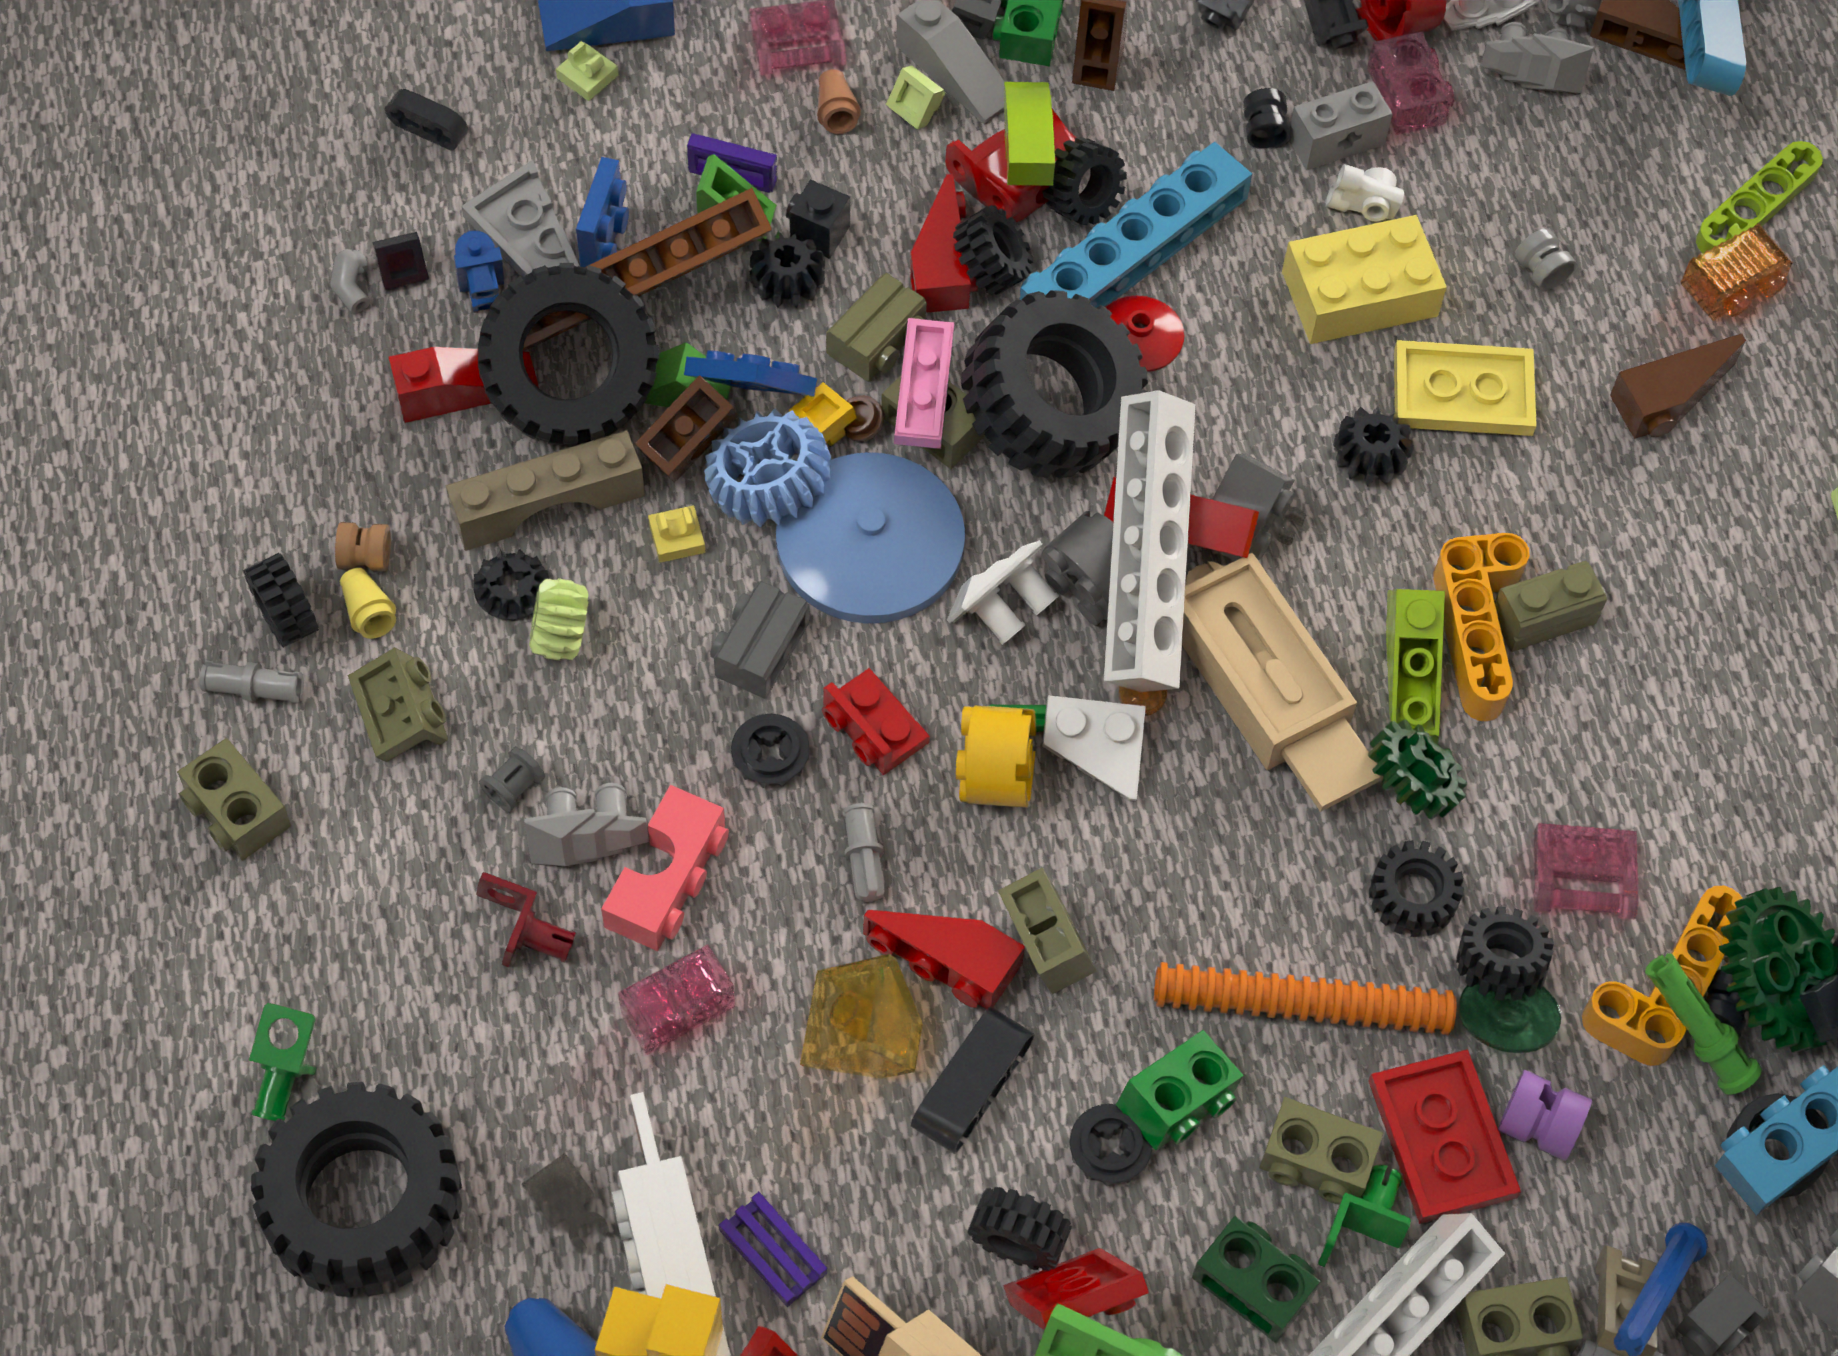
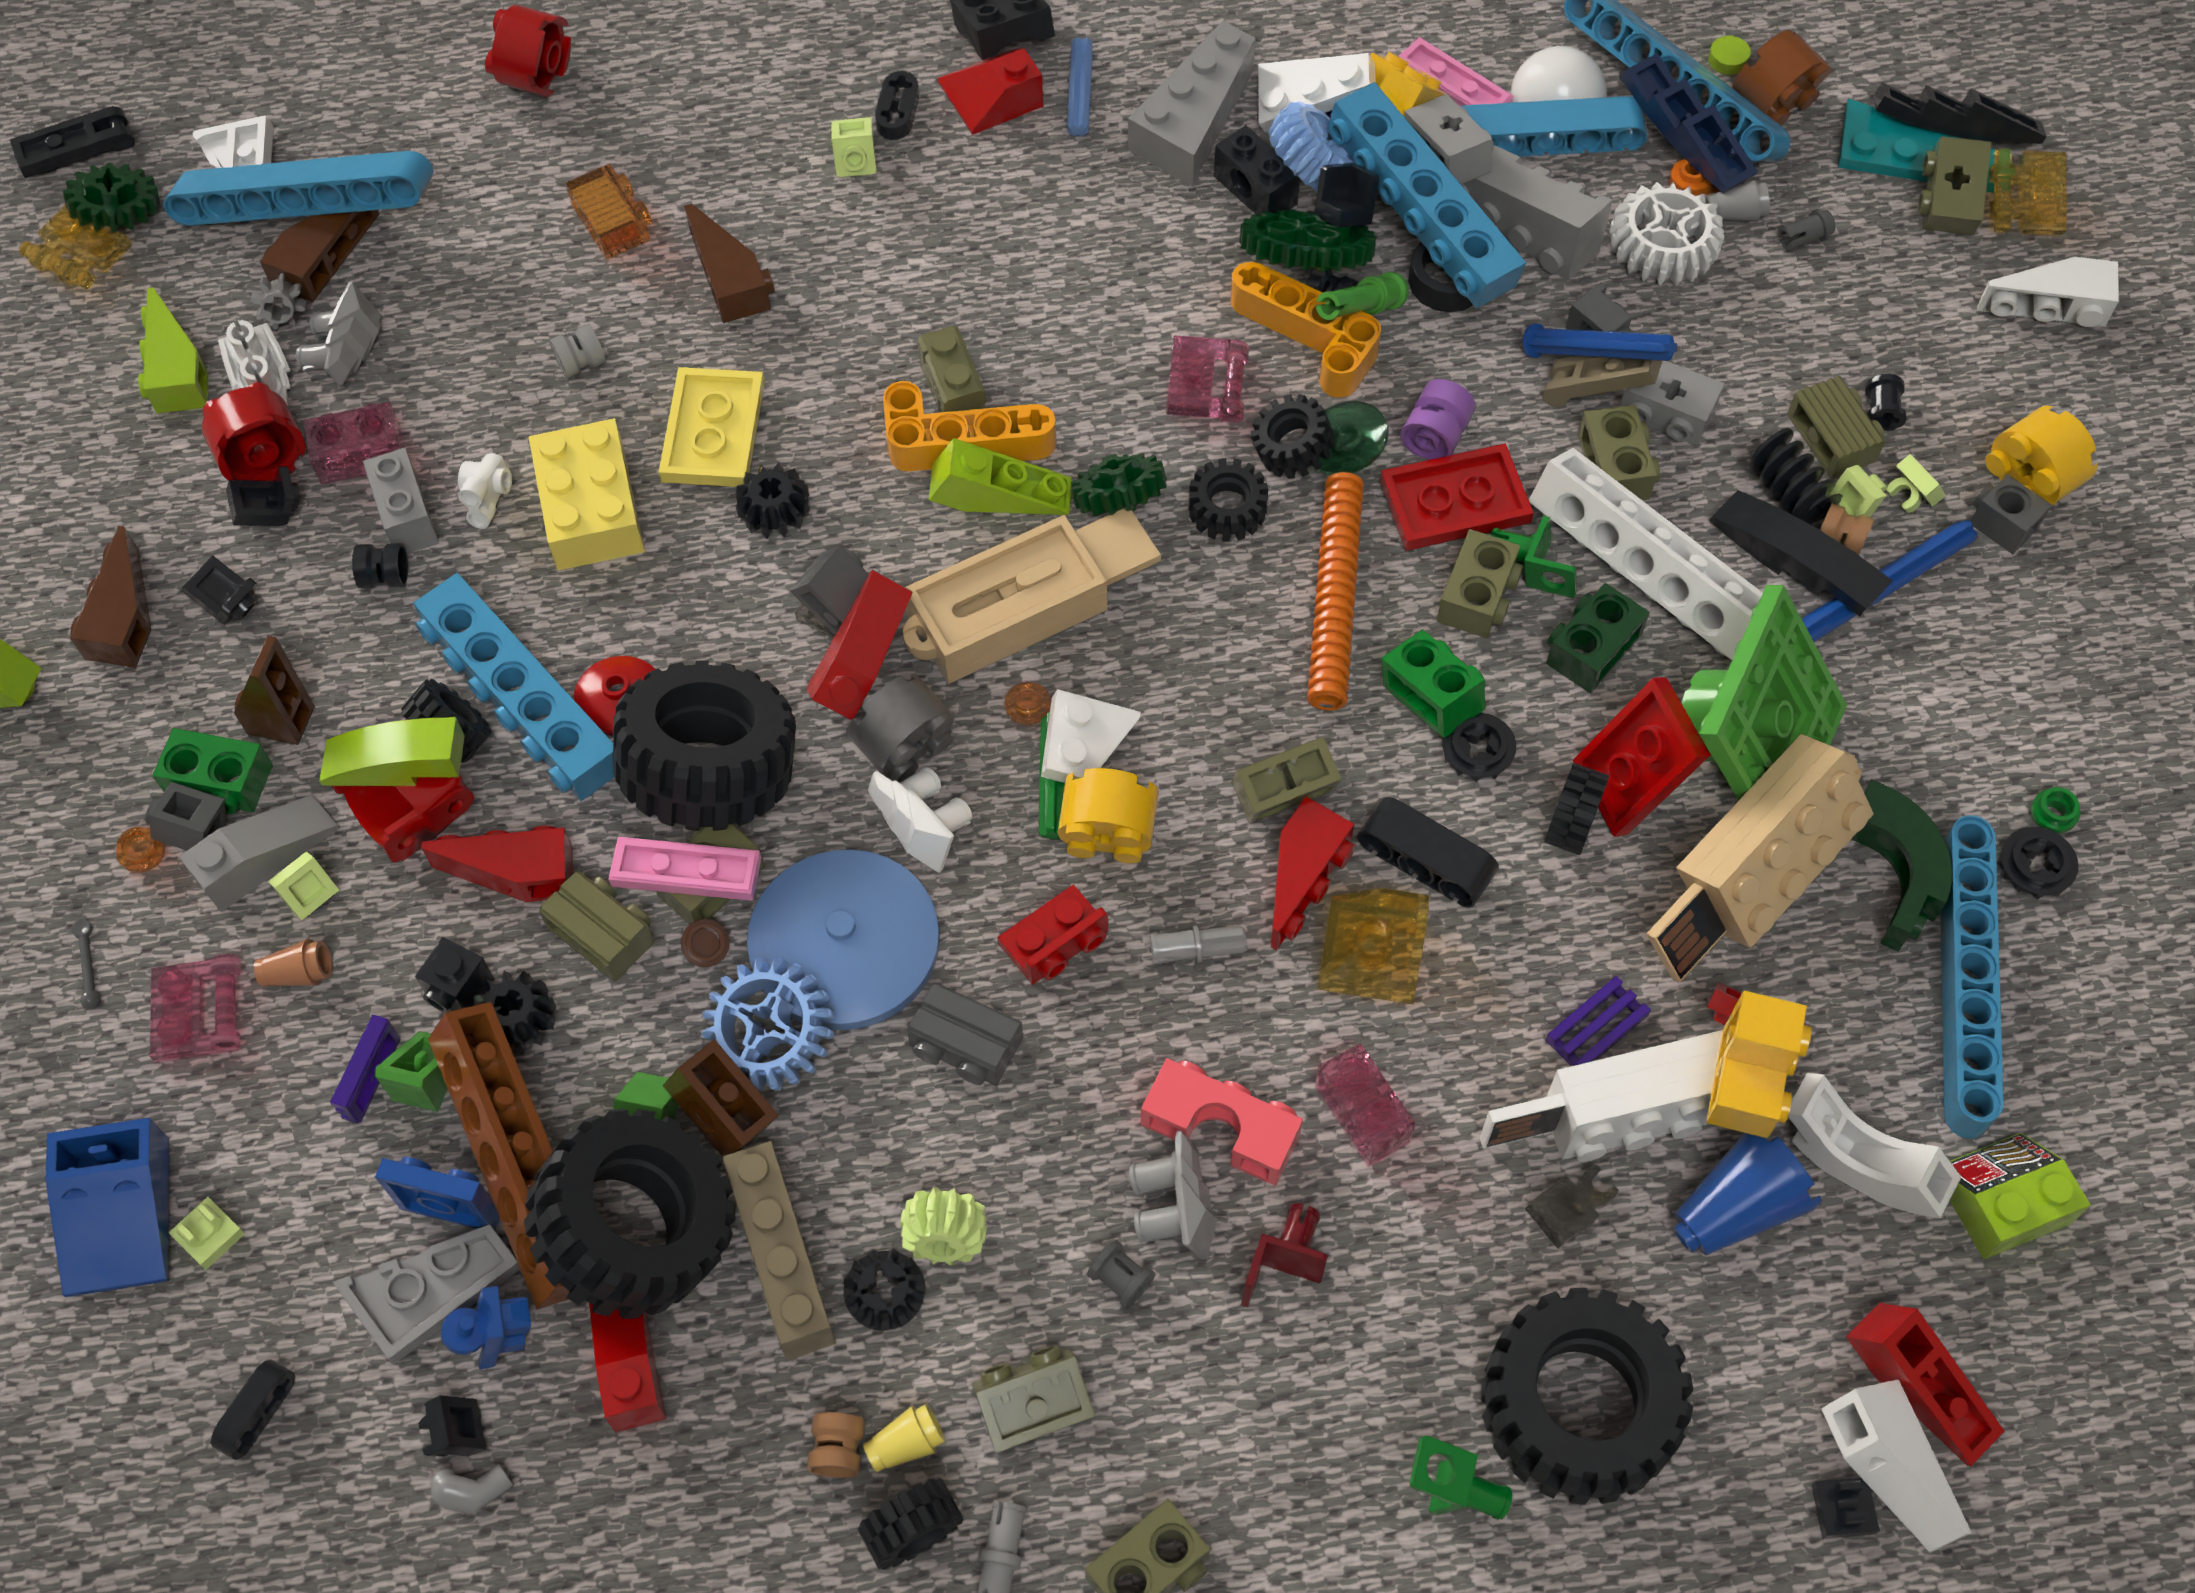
camera: 85 degrees left, 0 degrees up
(676, 534) = (830, 1123): light yellow tile -> none
(751, 373) = (662, 1041): blue plate -> none
(768, 730) = (1083, 1009): black gear -> none
(826, 412) = (702, 971): yellow tile -> none
(993, 250) = (521, 807): black tyre -> none
(1149, 542) = (906, 654): white brick -> none
(1757, 198) = (528, 188): lime beam -> none

